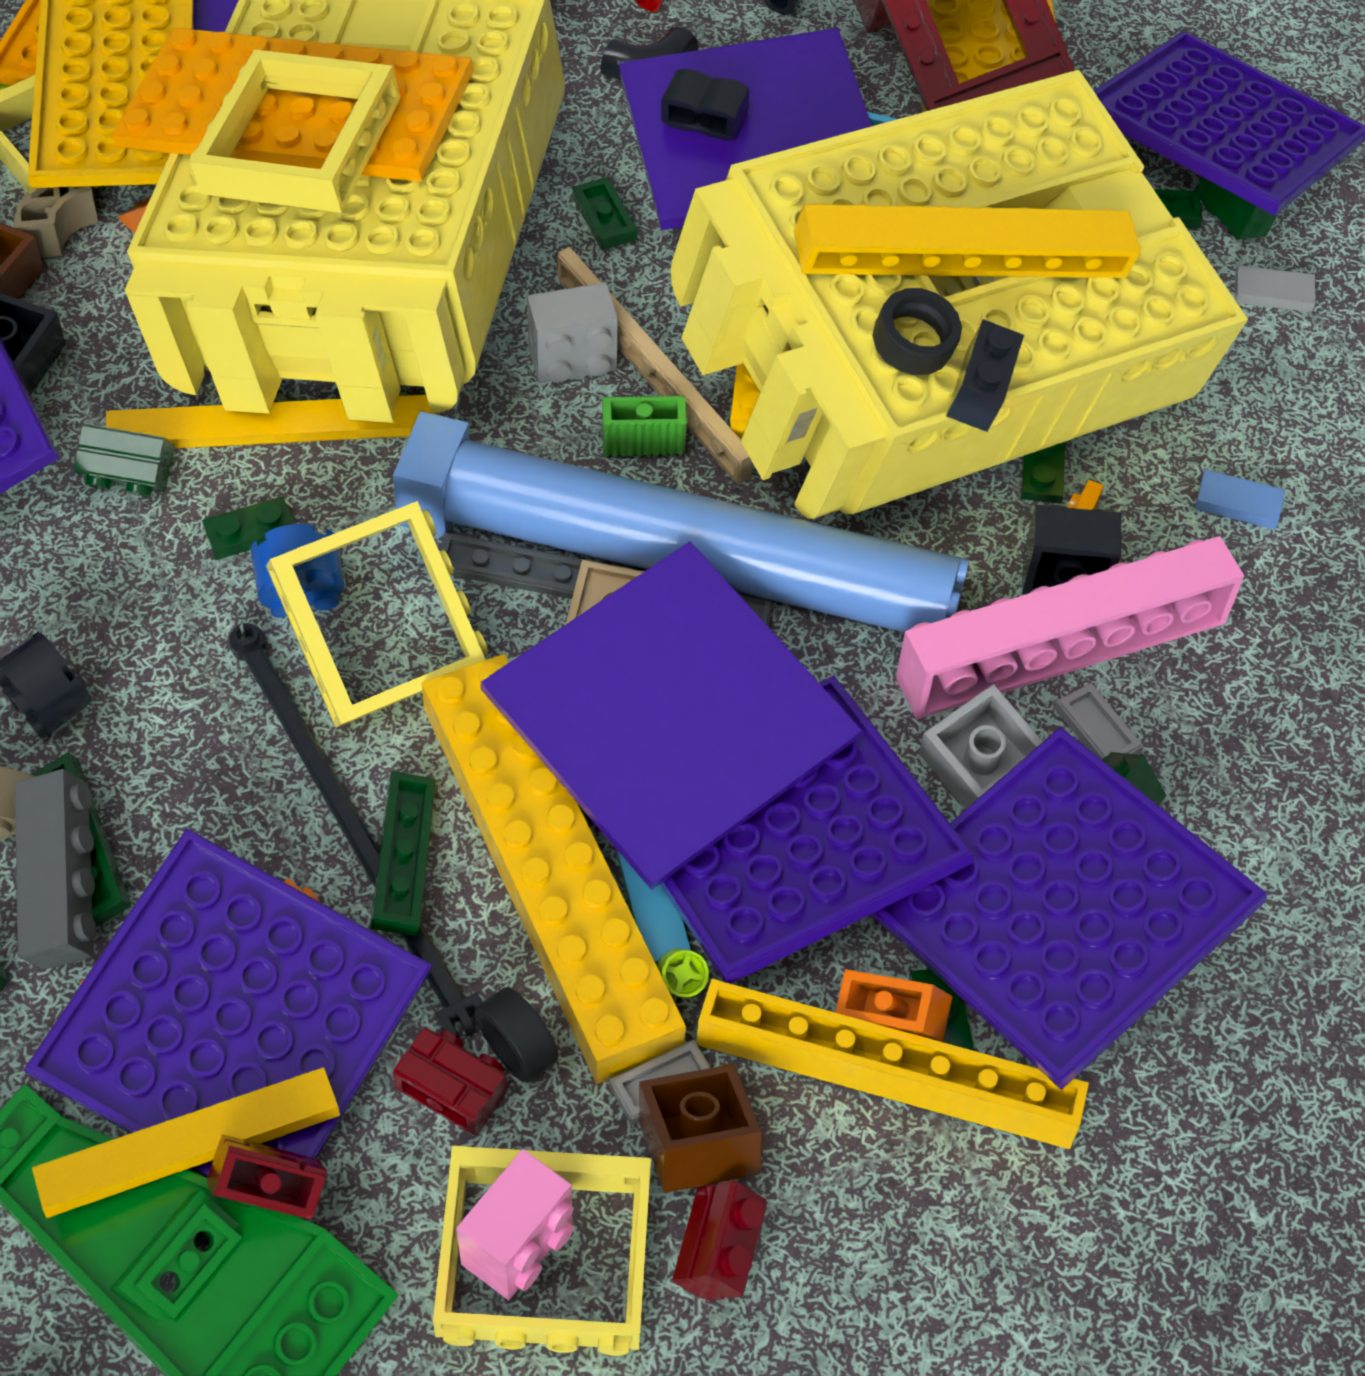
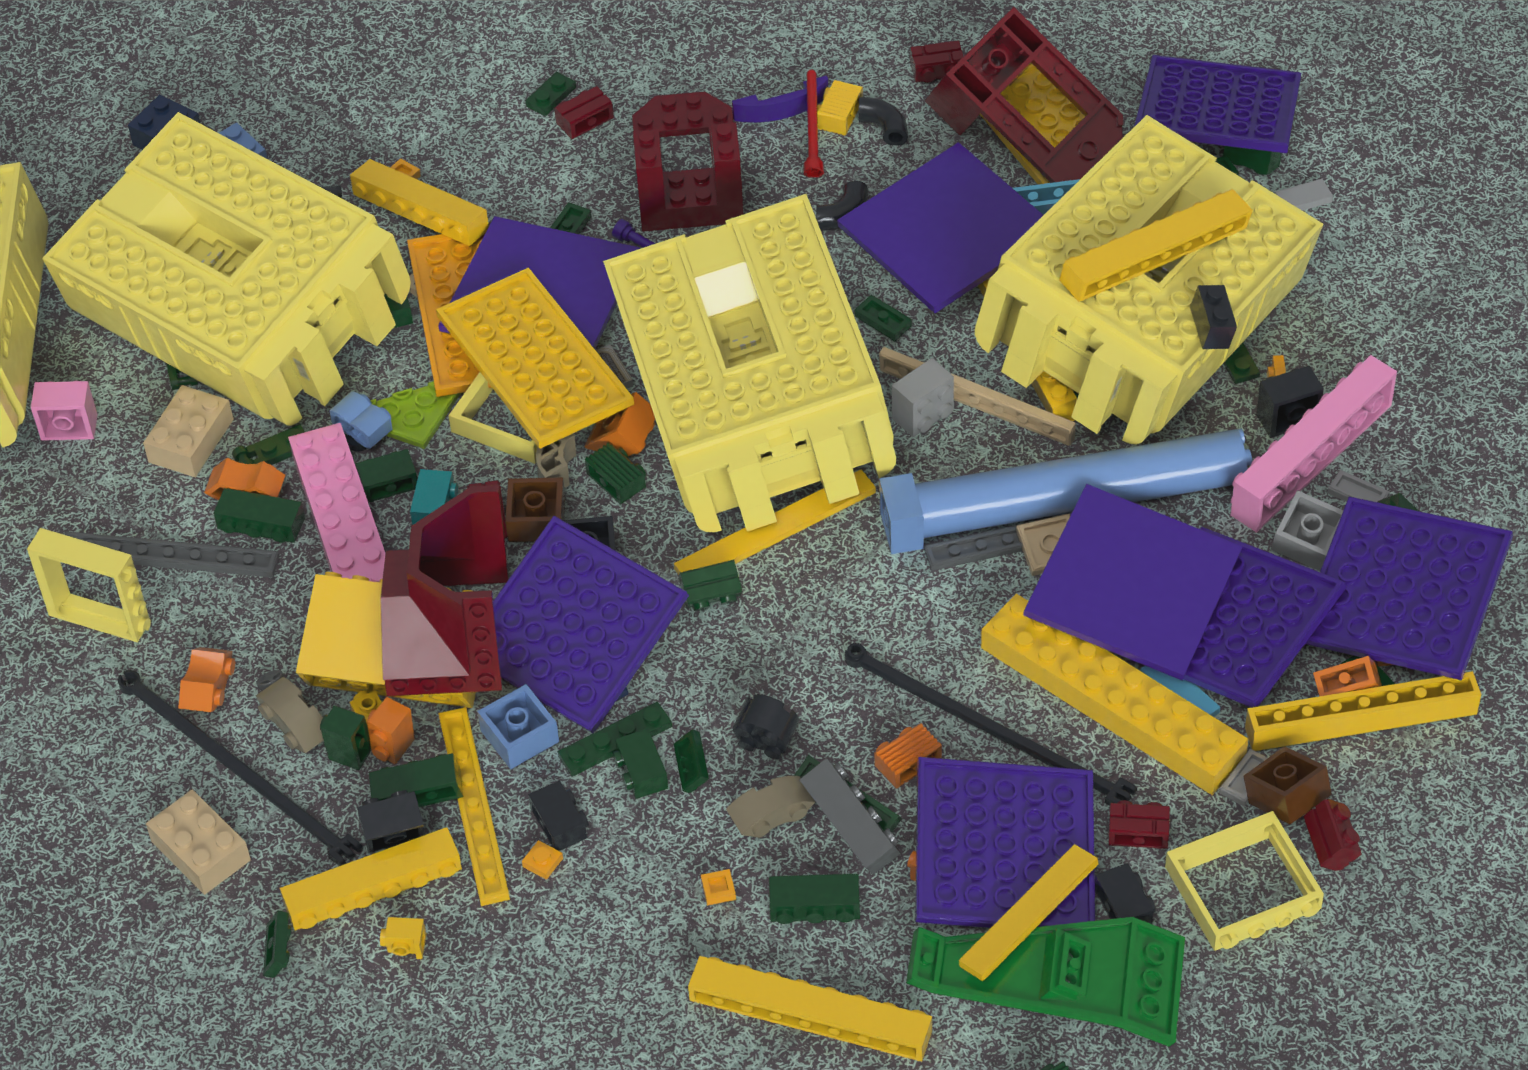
camera: 20 degrees left, 5 degrees down
(112, 259) = (615, 472): none -> dark green brick
(214, 811) = (900, 757): none -> orange brick
(239, 529) = (808, 593): dark green plate -> none
(266, 1177) = (1086, 906): dark red brick -> none
(290, 127) = (702, 326): light orange plate -> none
(293, 185) = (740, 377): light yellow window -> none
(311, 638) = (903, 629): light yellow window -> none
(319, 577) = (862, 600): blue brick -> none
(353, 1185) = (1123, 894): none -> black brick
(403, 854) = (1032, 723): dark green plate -> none
(516, 1034) = (1166, 774): black tyre -> none
(516, 1225) = (1236, 866): bright pink brick -> none
(643, 425) = (999, 433): bright green brick -> none
(689, 976) = (1228, 711): lime wheel -> none
(705, 104) = (915, 224): black brick -> none
(923, 306) = (1158, 322): black tyre -> none
(1240, 499) = (1358, 331): medium blue tile -> none

